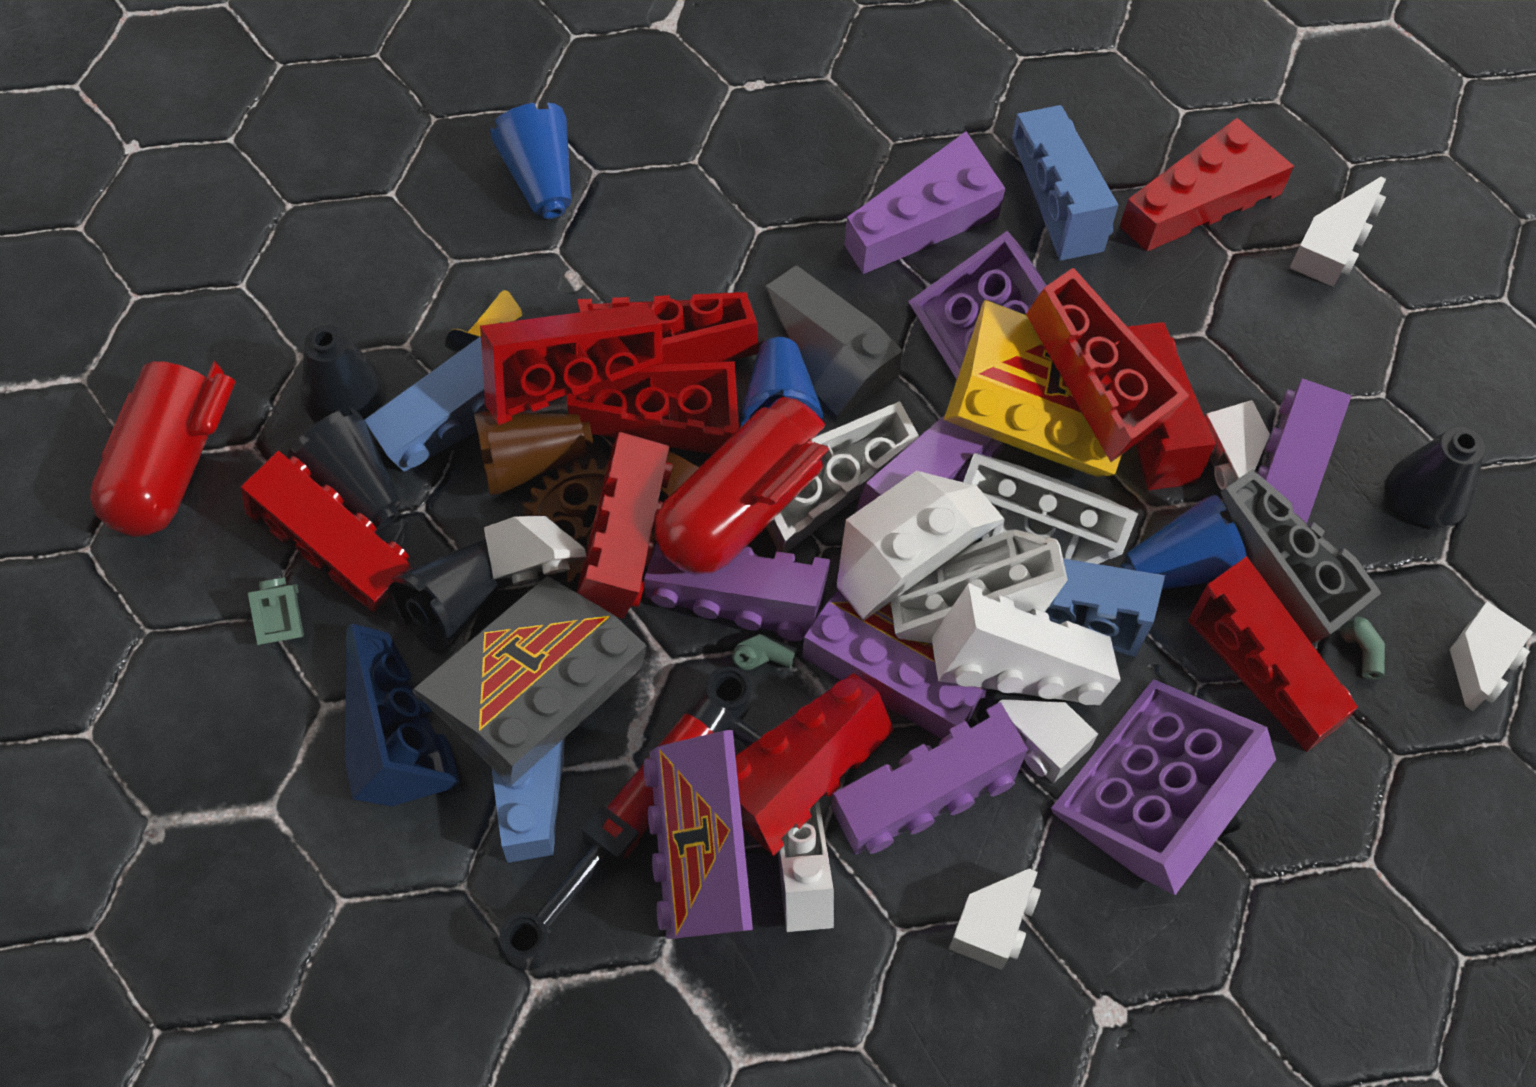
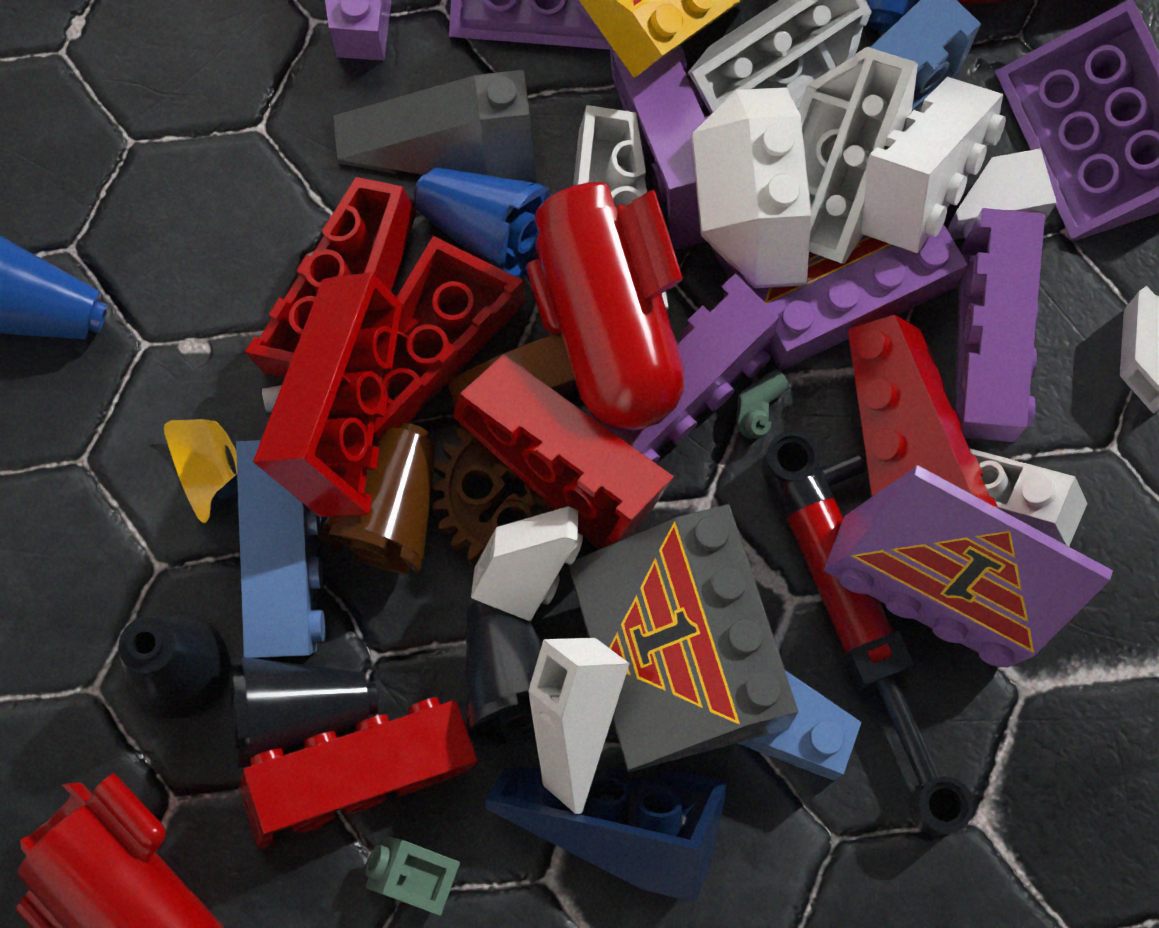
camera: 55 degrees left, 10 degrees up
(447, 618) = (572, 711): none -> white slope

